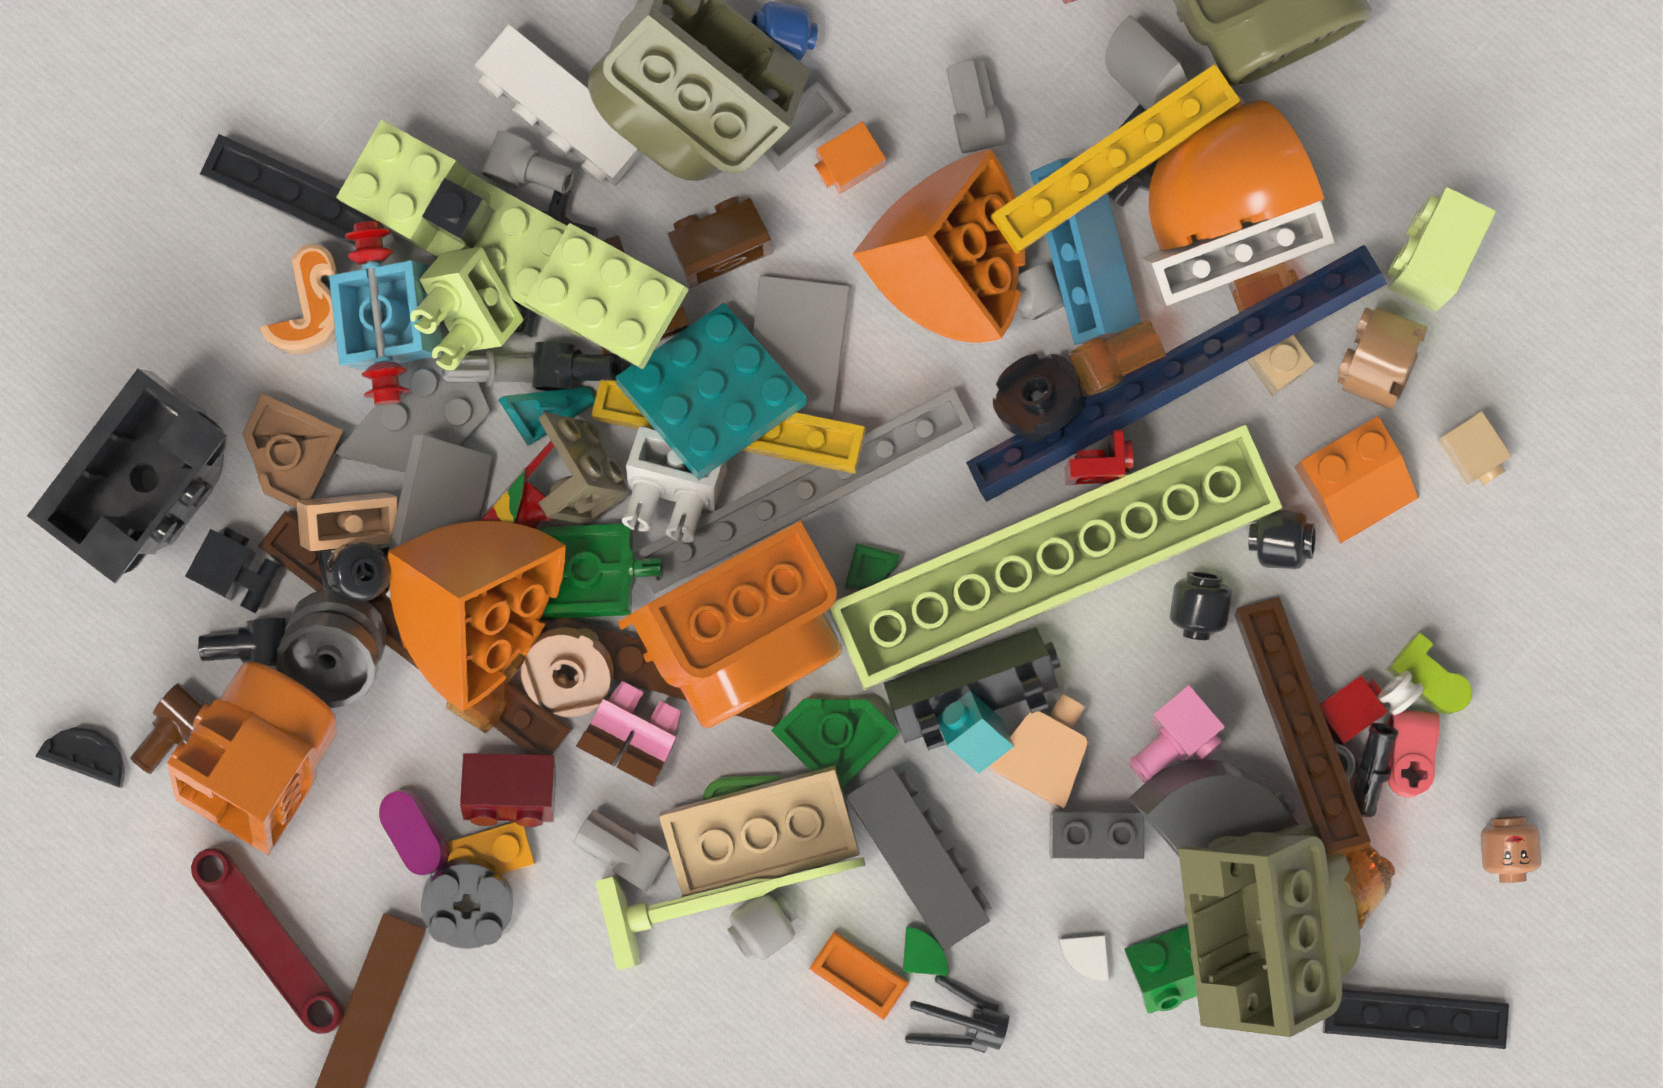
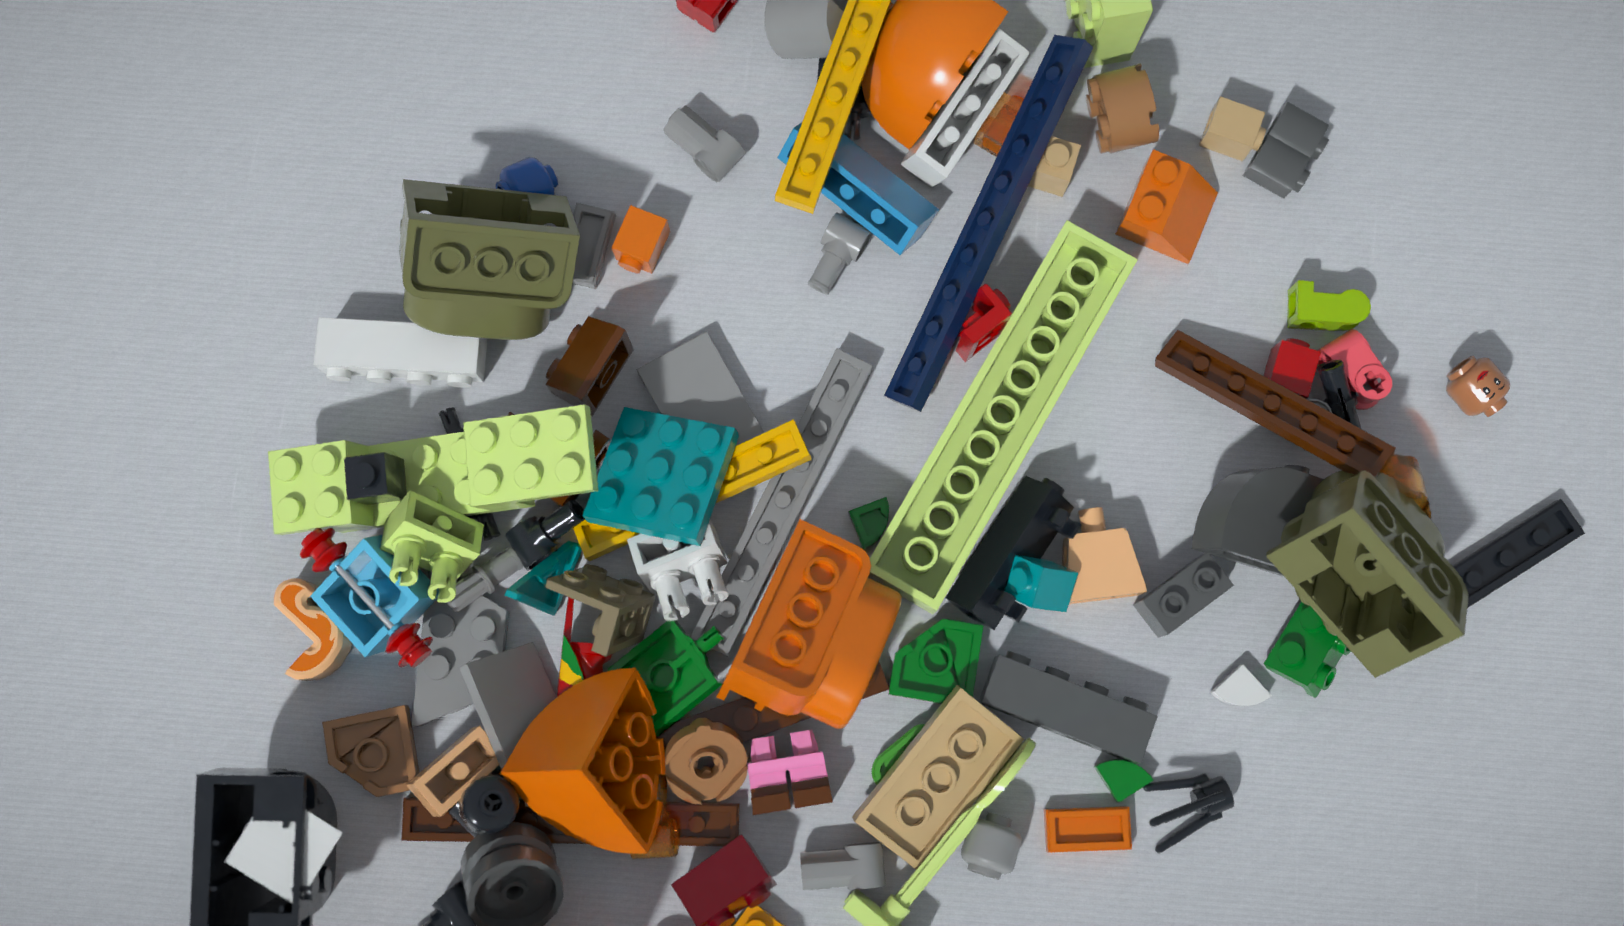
camera: 35 degrees left, 5 degrees down
(151, 477) = (267, 852): none -> white sticker
(224, 565) = (385, 875): black brick -> none
(280, 188) = (228, 559): black plate -> none
(516, 162) = (395, 414): light grey pin -> none
(945, 256) = (762, 255): orange brick -> none
(1049, 414) = (917, 320): black plate -> none
(1105, 361) = (933, 247): clear orange piece -> none
(1185, 733) = (1189, 471): bright pink brick -> none
(1200, 605) = (1128, 374): black head -> none
(1283, 539) = (1150, 286): black head -> none
(1400, 692) = (1321, 330): white bush -> none
(1509, 506) = (1287, 150): none -> dark grey brick

